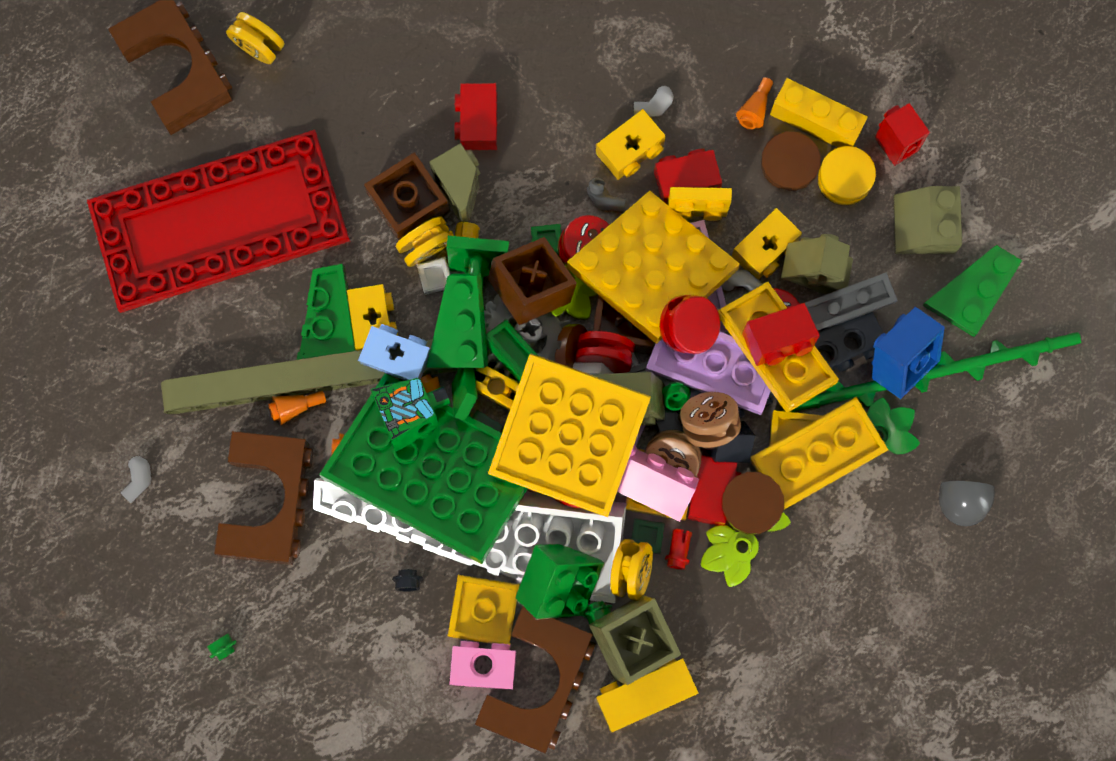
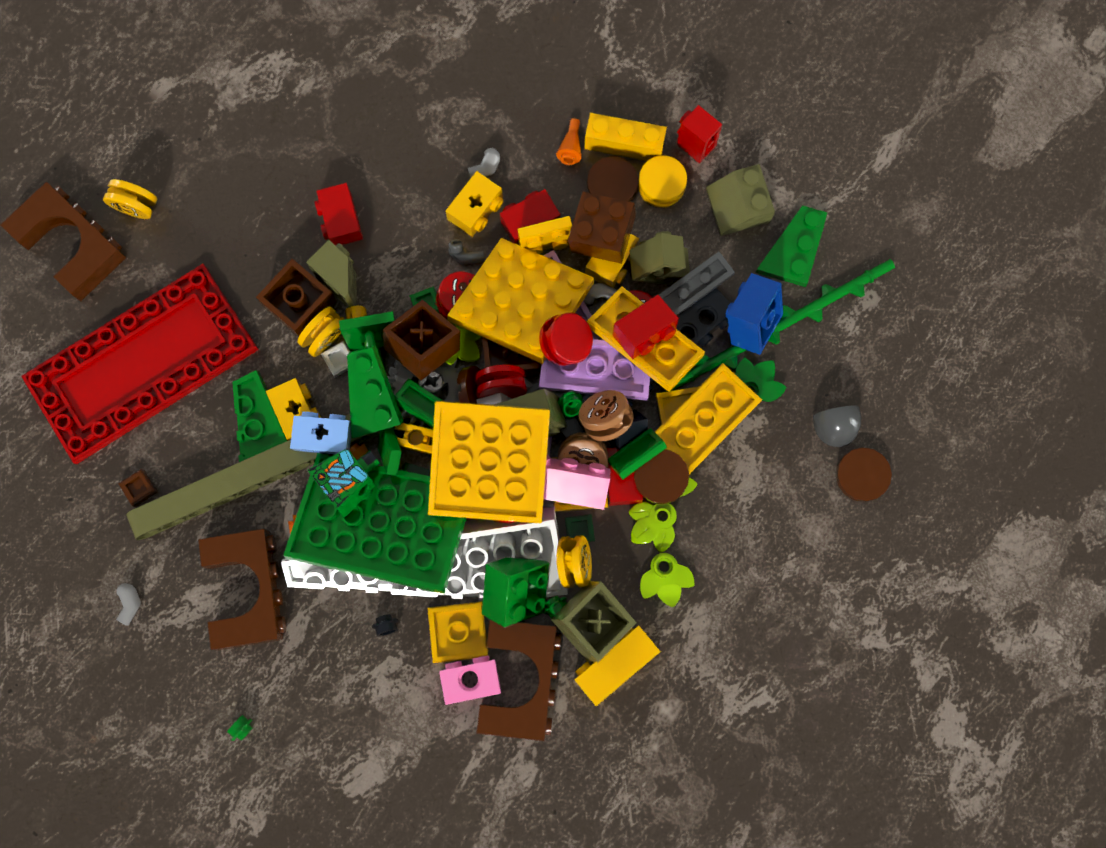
camera: 15 degrees left, 0 degrees up
(180, 356) = (138, 487): none -> reddish brown tile
(287, 407) = (244, 504): orange cone -> none
(679, 549) = (609, 533): red pin -> none
(726, 622) = (666, 584): none -> lime plate
(732, 470) = (636, 453): none -> green tile
(764, 210) = (602, 227): none -> reddish brown brick
(979, 563) = (863, 474): none -> reddish brown tile

